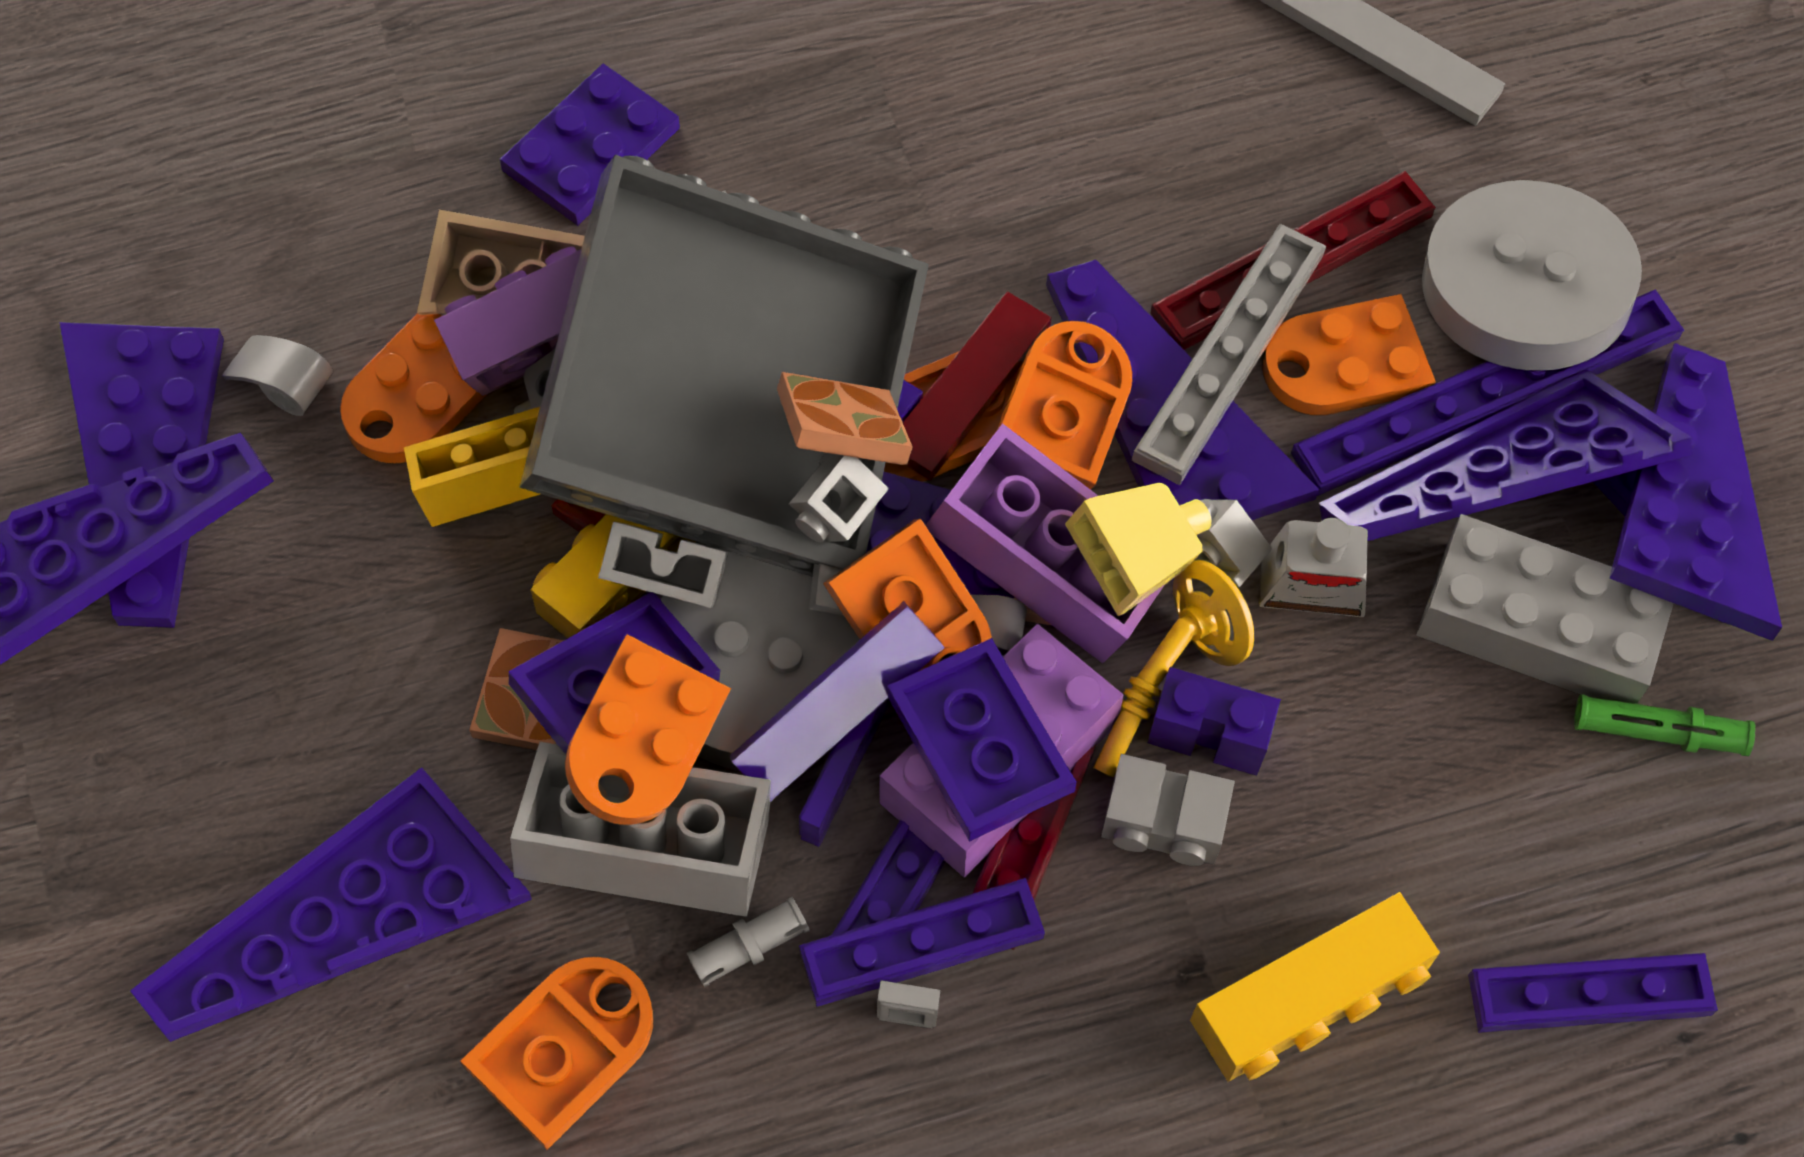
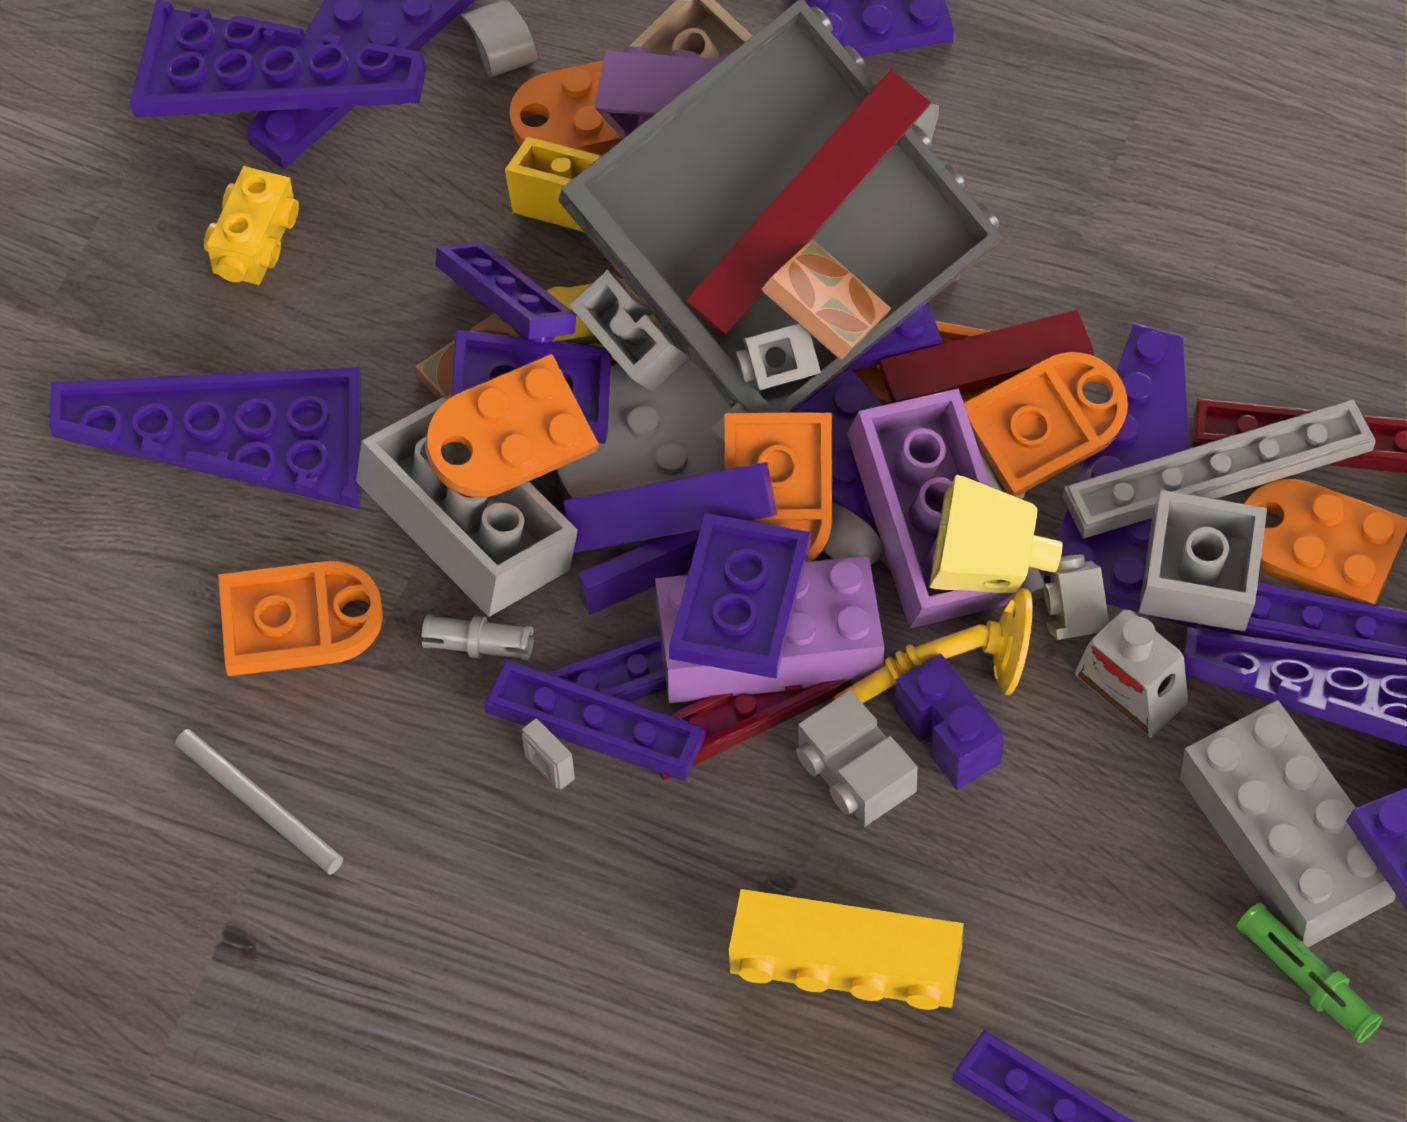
camera: 45 degrees right, 5 degrees down
(200, 715) = (251, 225): none -> yellow brick
(508, 603) = (506, 291): none -> dark purple plate
(755, 343) = (808, 202): none -> dark red tile
(1301, 437) = (1203, 560): none -> light grey brick

